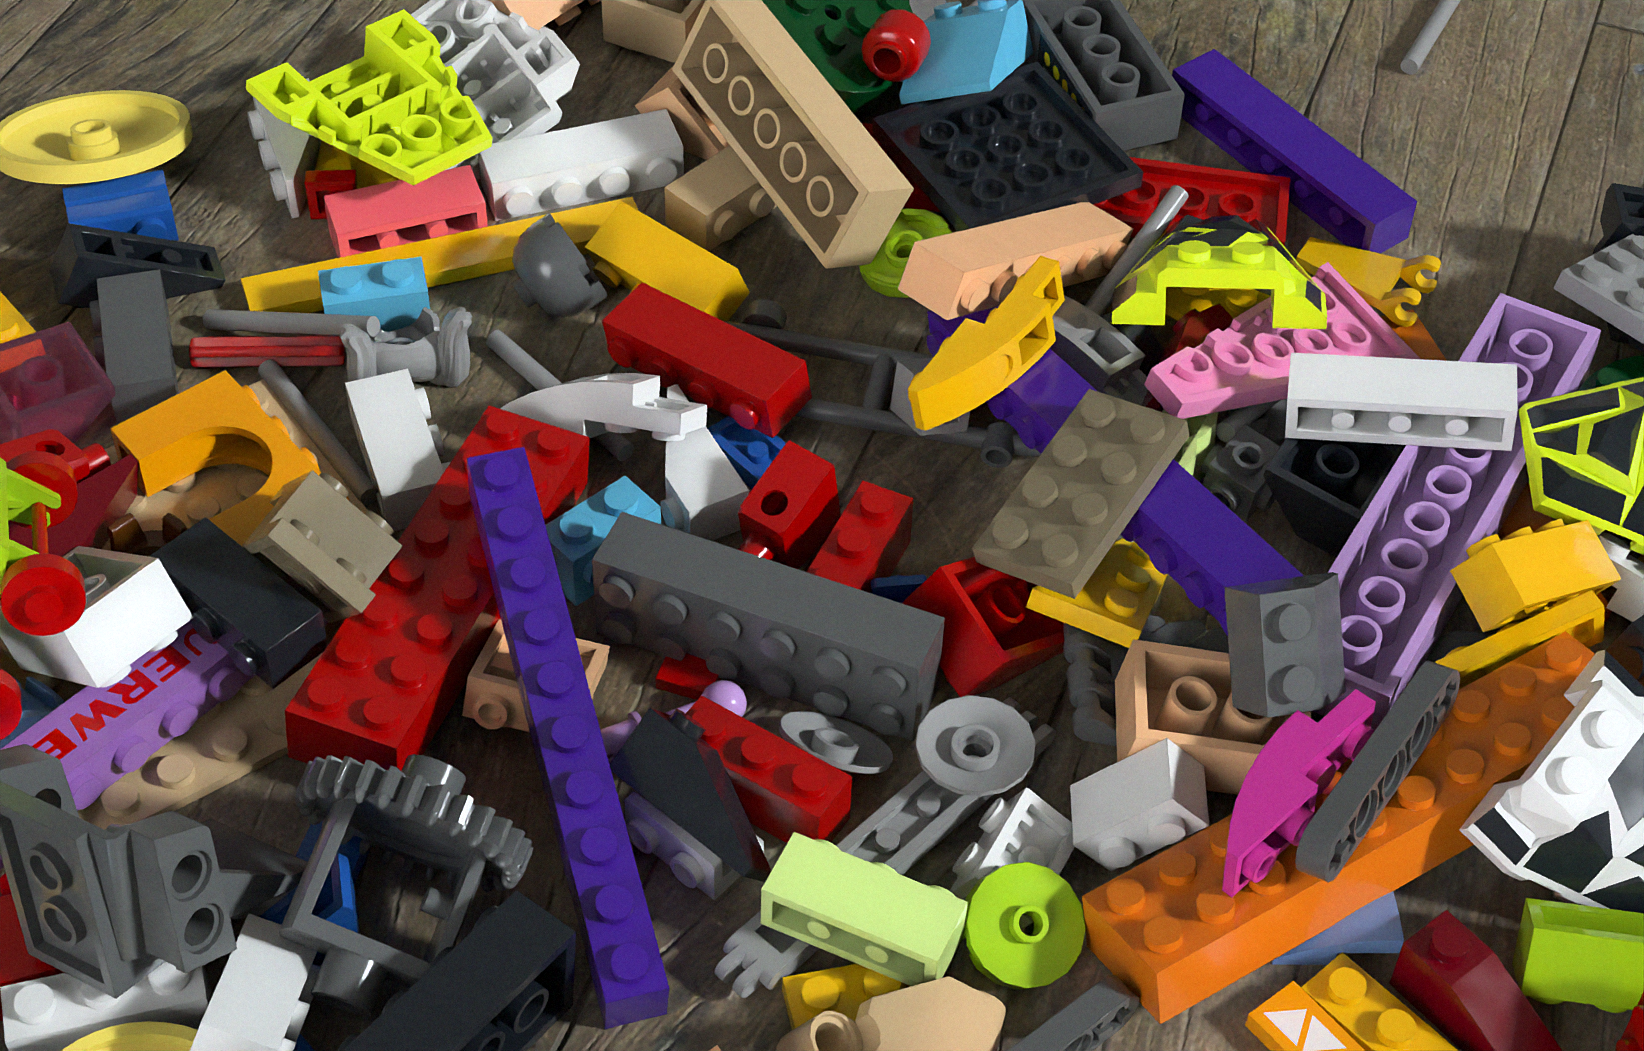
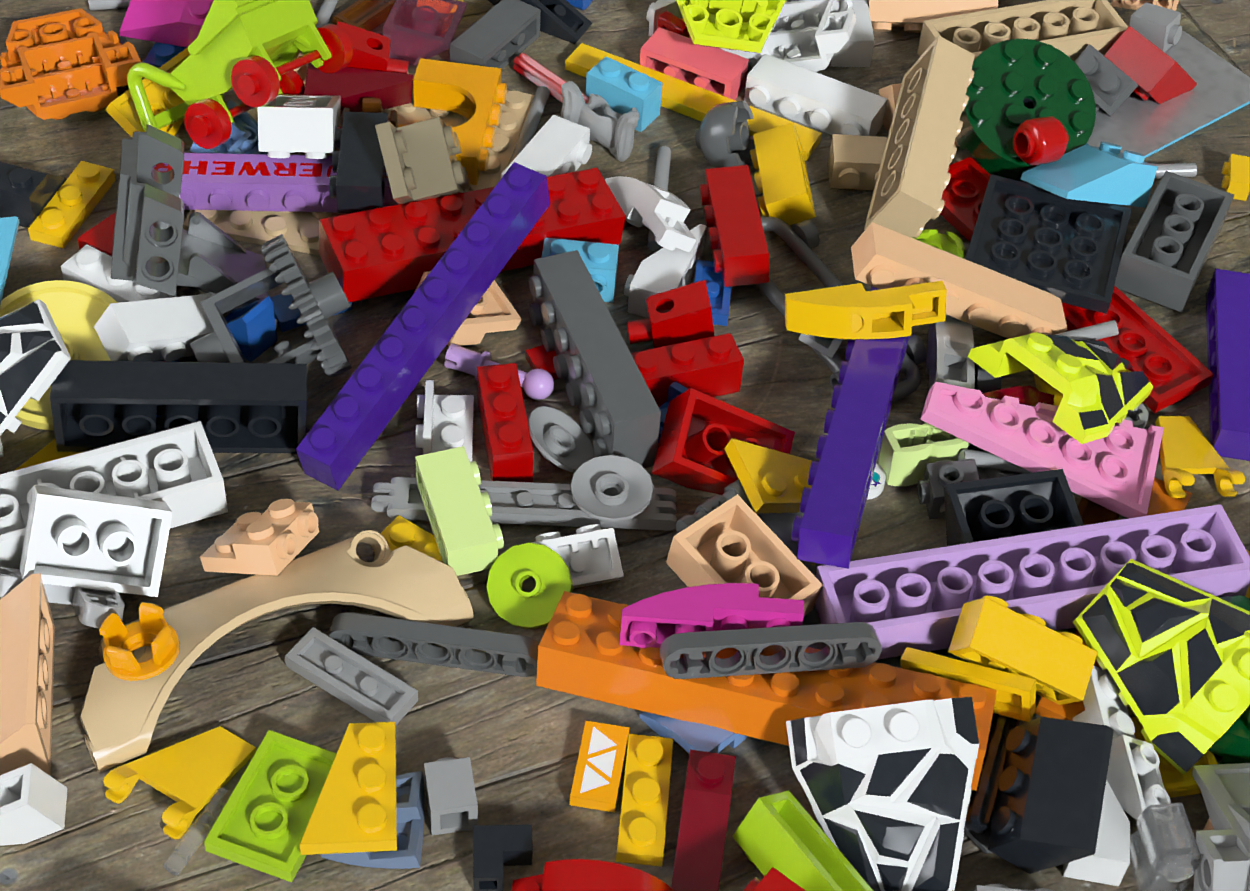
camera: 45 degrees right, 0 degrees up
(287, 322) = (568, 73): light grey bar -> none
(691, 786) = (451, 394): black slope -> none
(1081, 493) = (809, 408): dark tan plate -> none
(1139, 805) = (651, 573): white brick -> none
(1285, 644) = (802, 553): dark grey slope -> none
(1402, 401) = (1060, 504): white brick -> none

